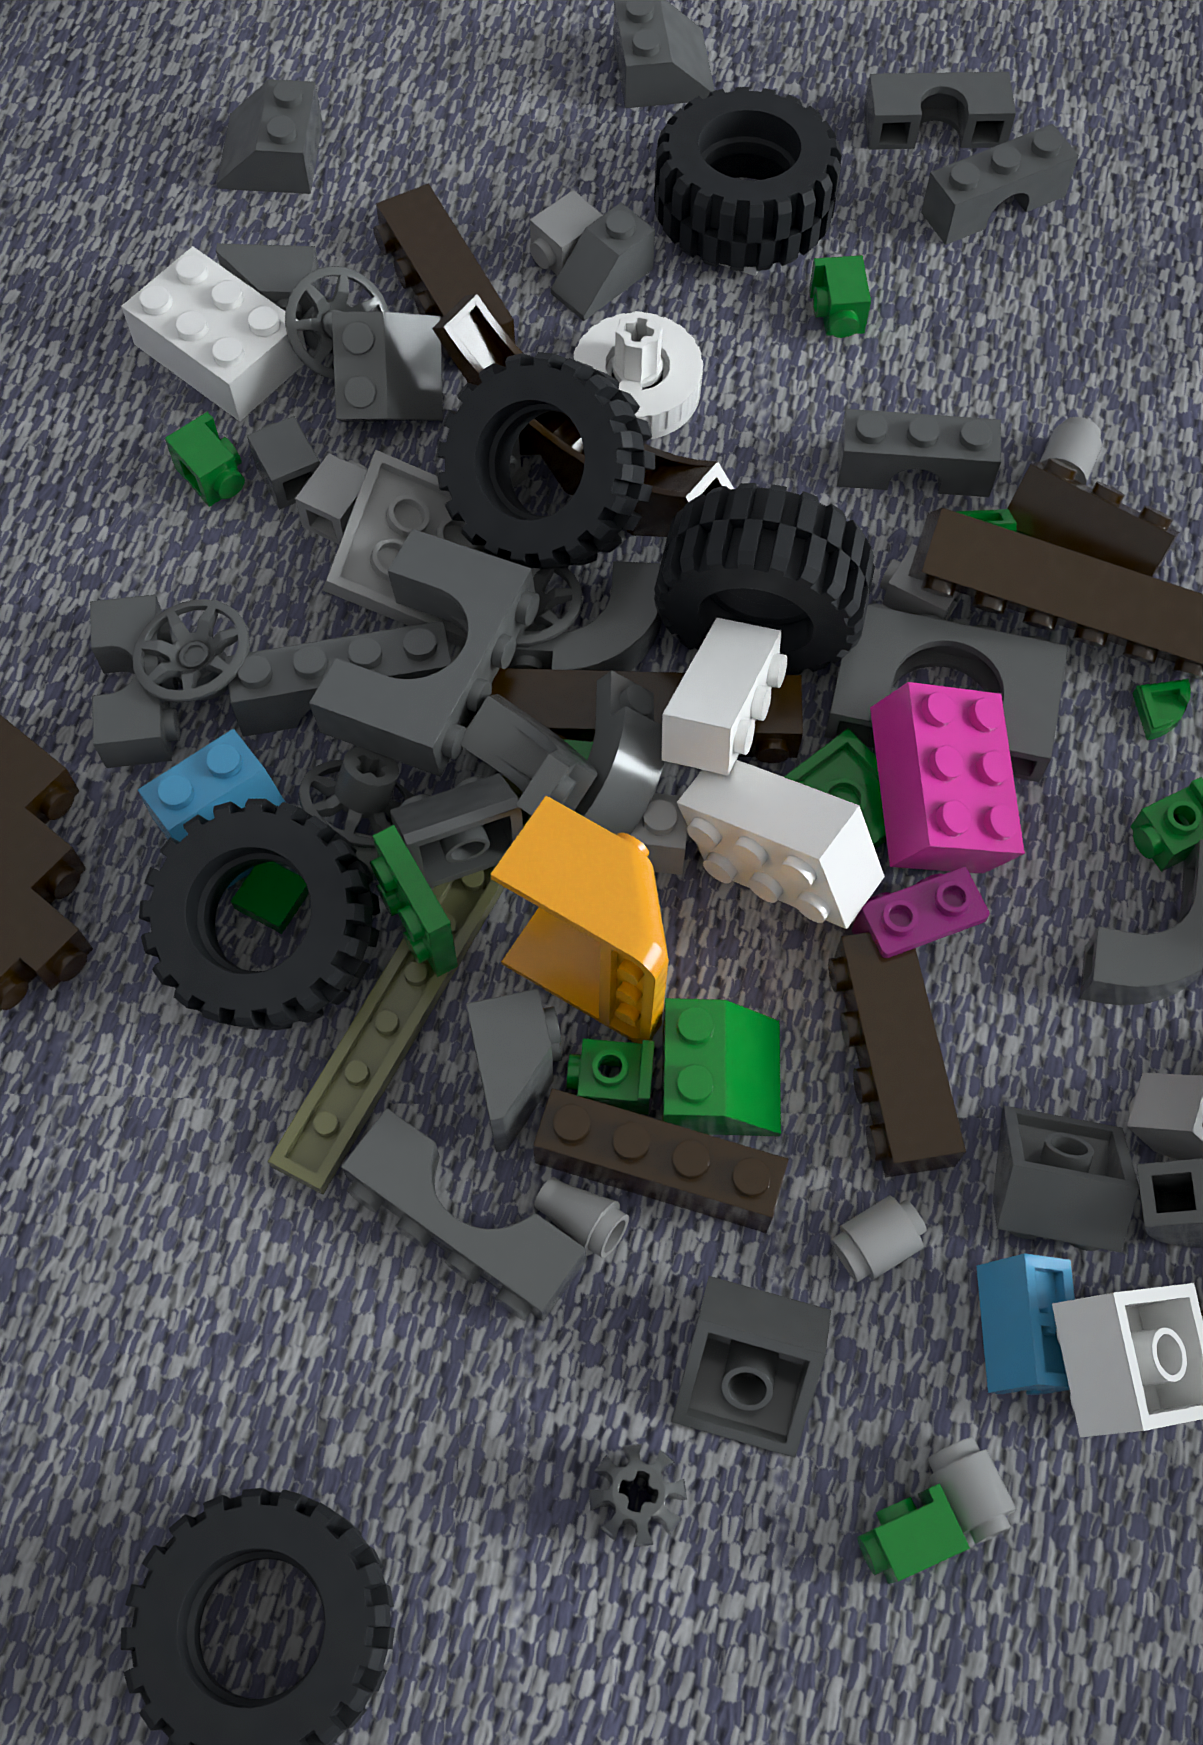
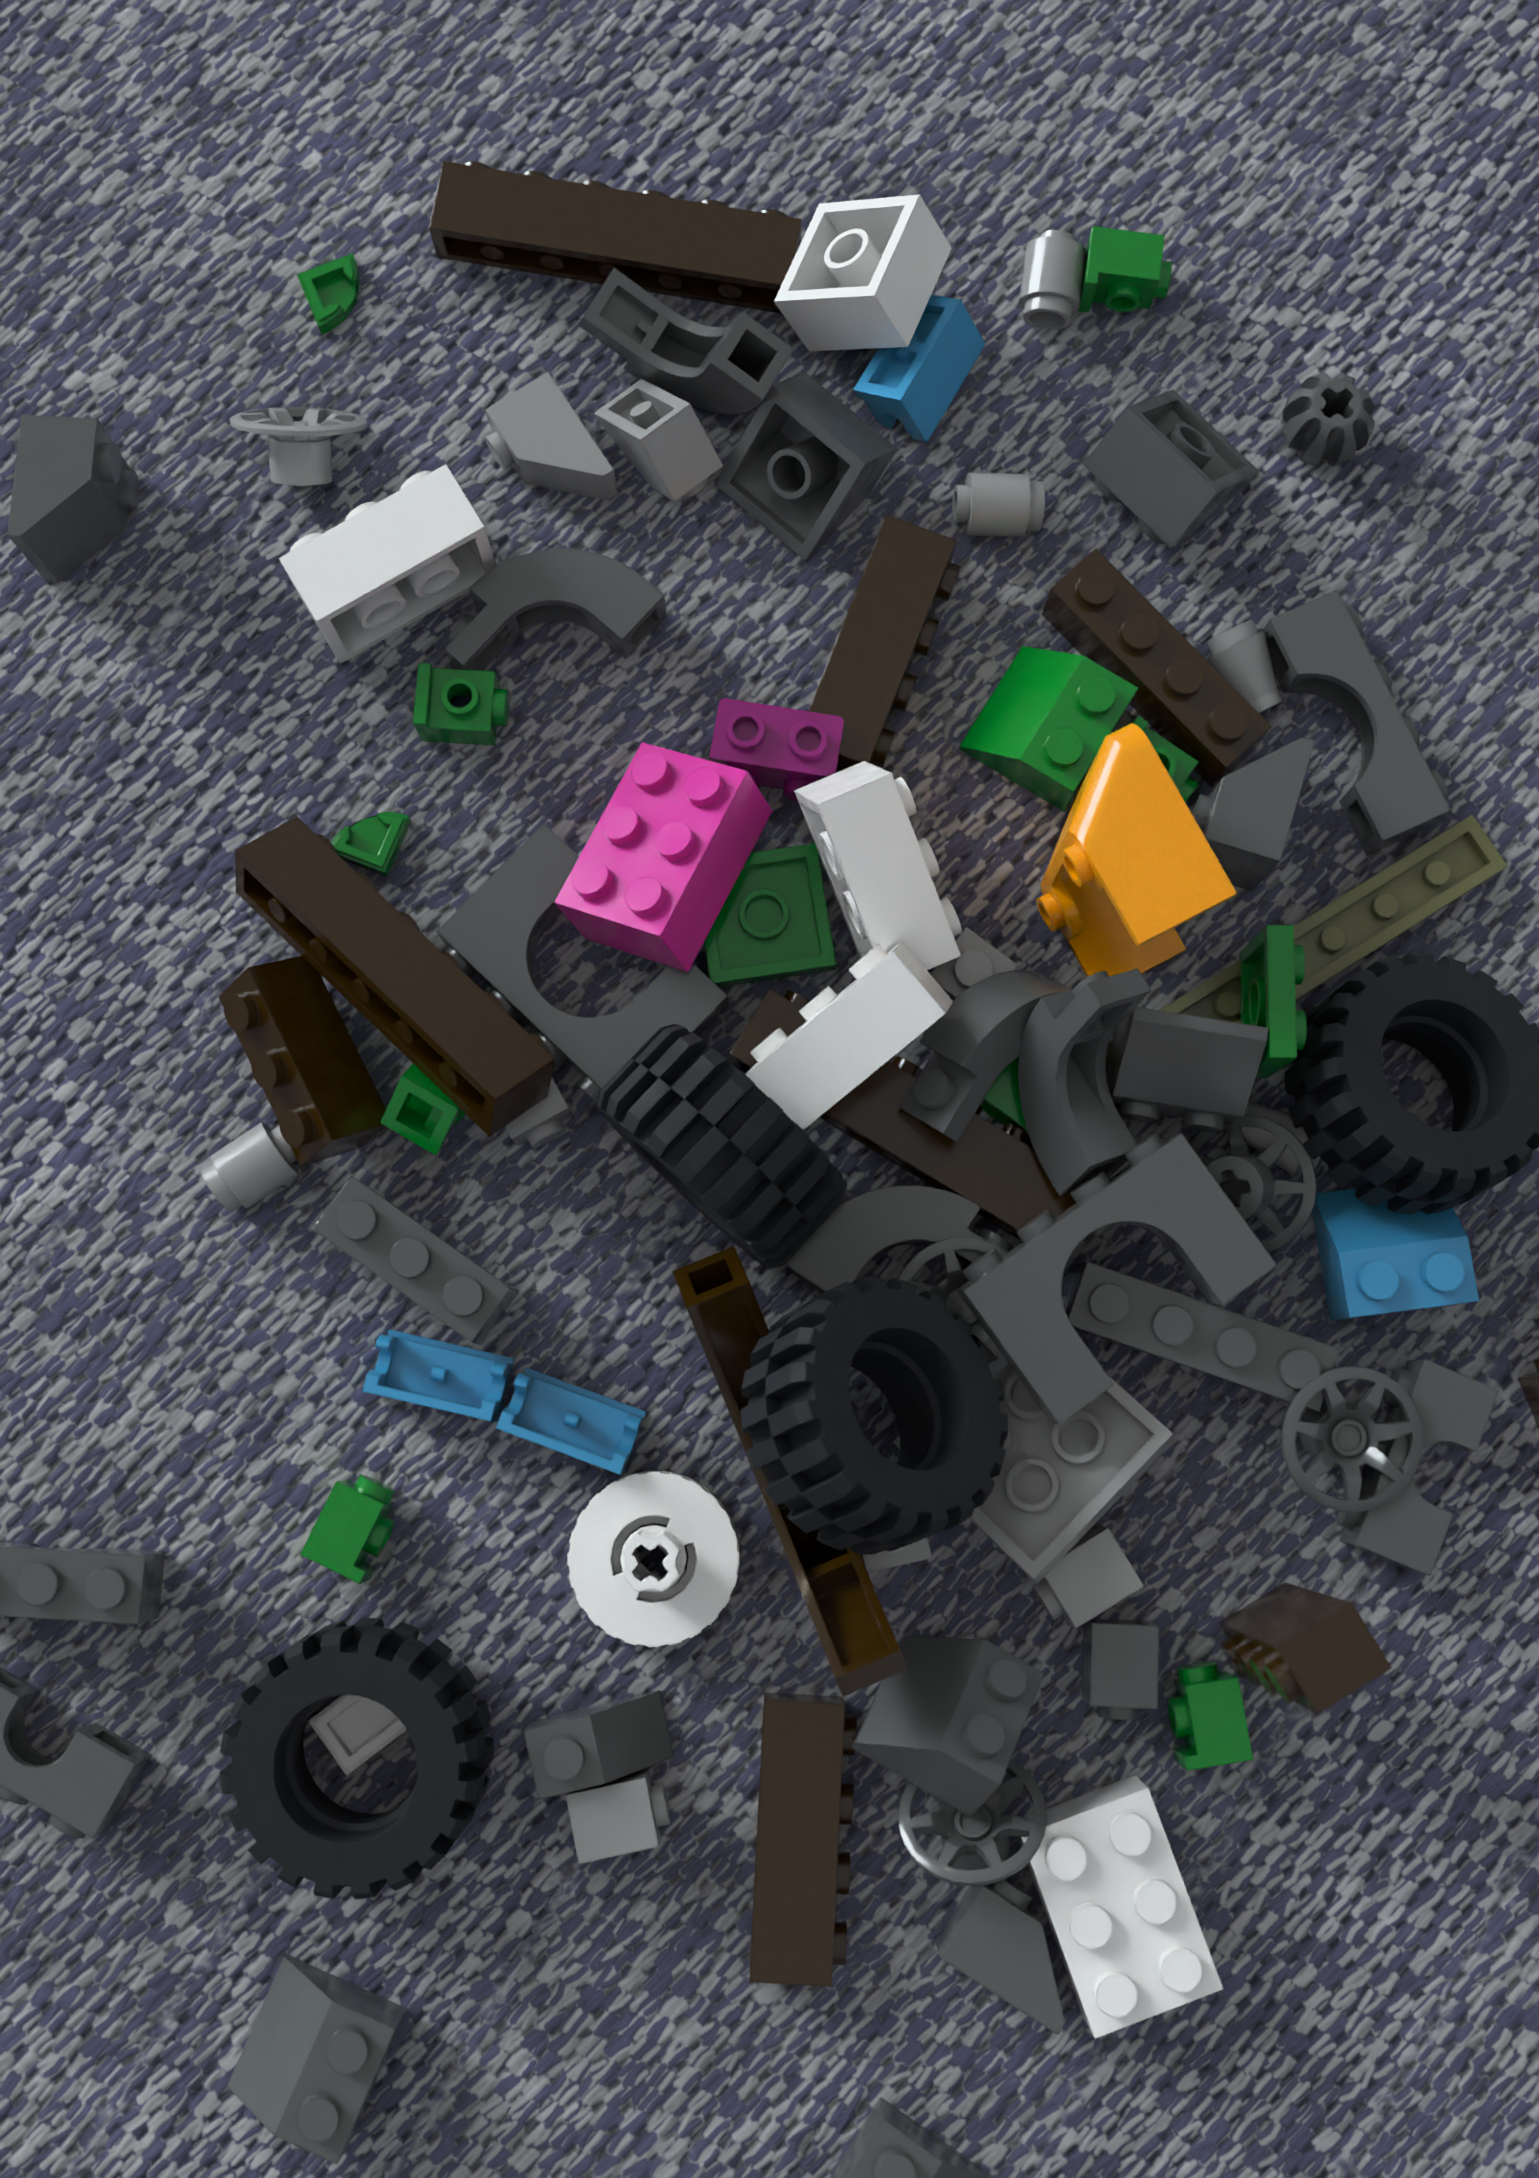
camera: 150 degrees left, 15 degrees up
(165, 476) = (1302, 1646): none -> dark brown brick
(745, 417) = (572, 1420): none -> dark azure hinge
(856, 385) = (440, 1375): none -> dark azure hinge

